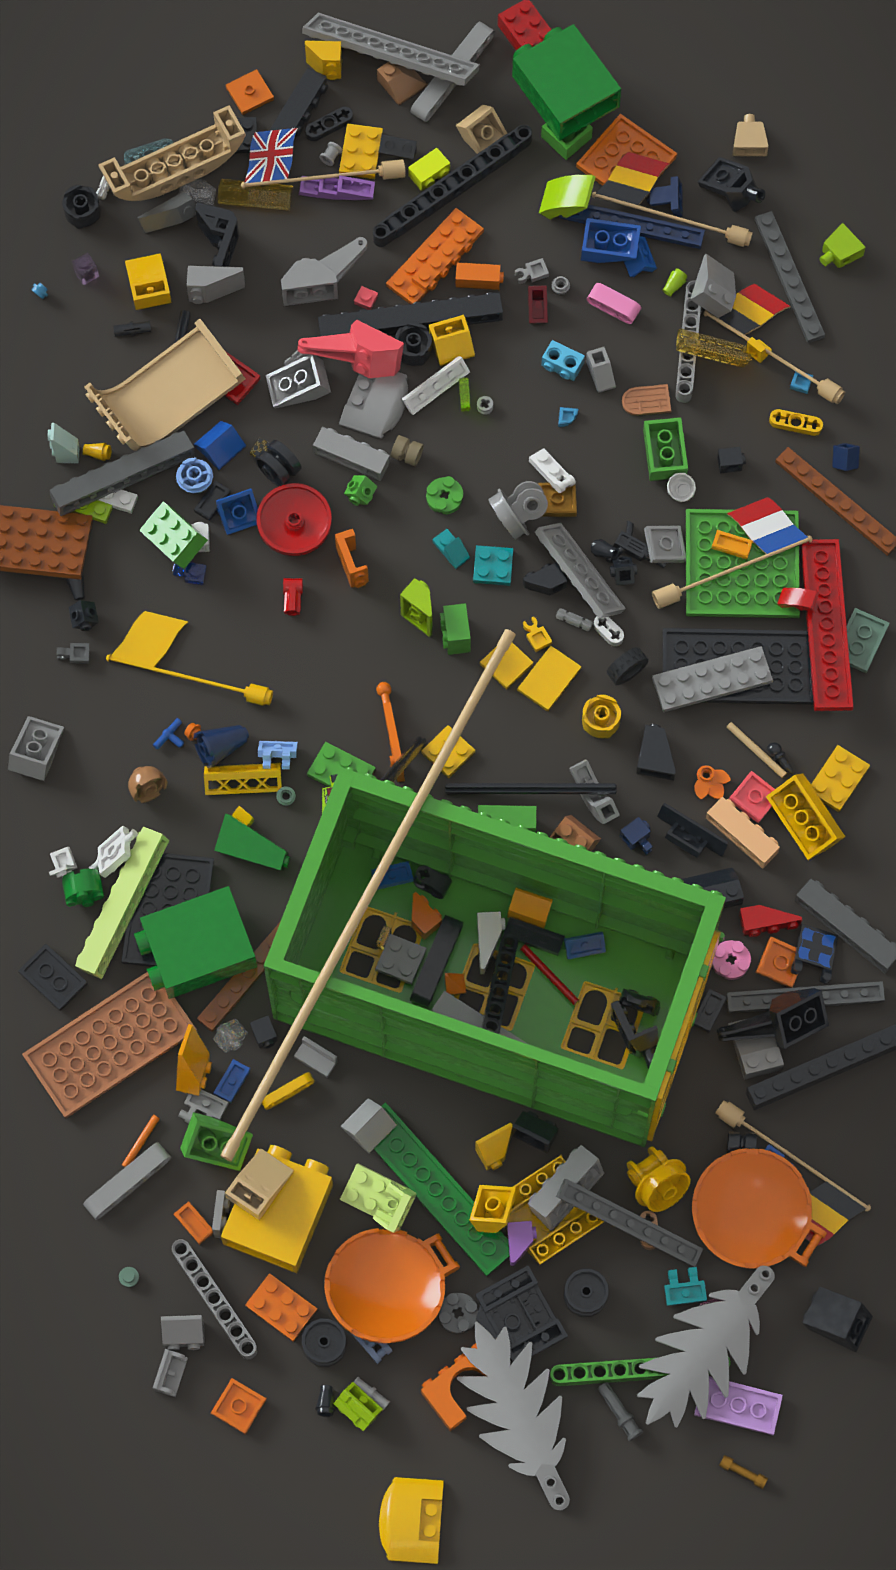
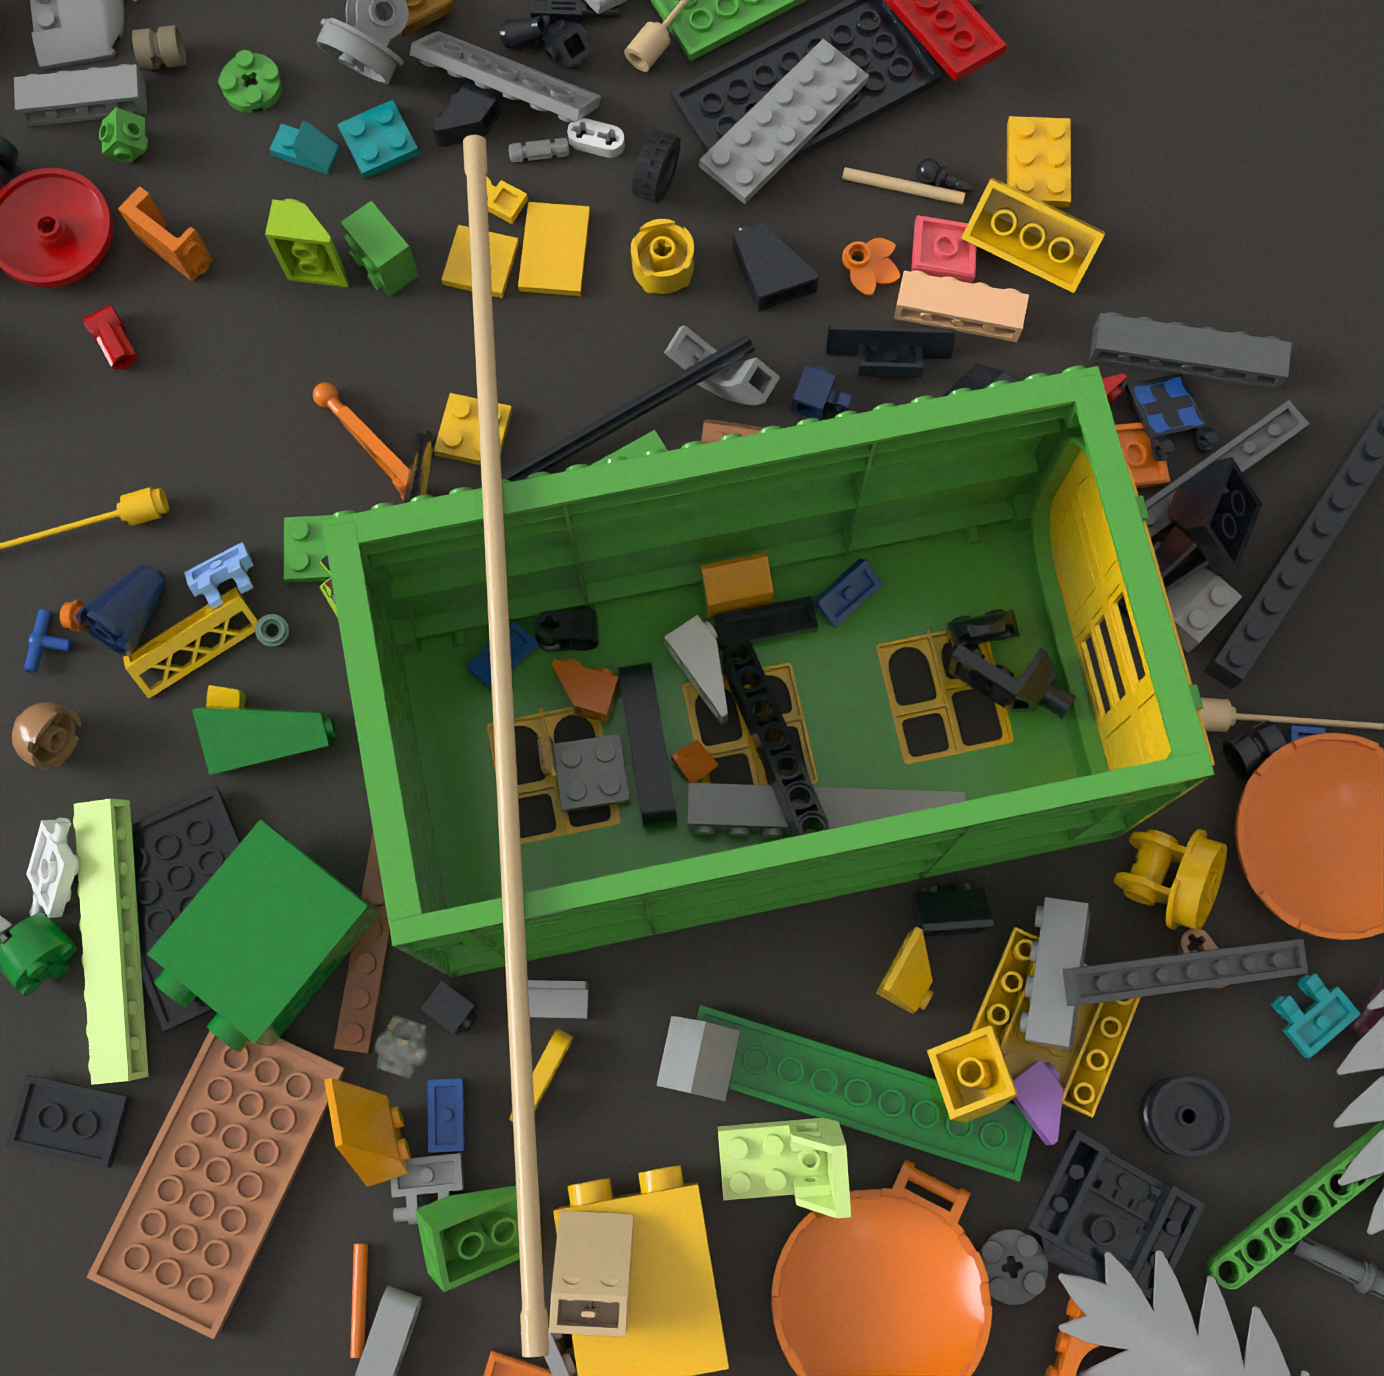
camera: 30 degrees left, 5 degrees up
(549, 974) = (822, 665): red bar -> none

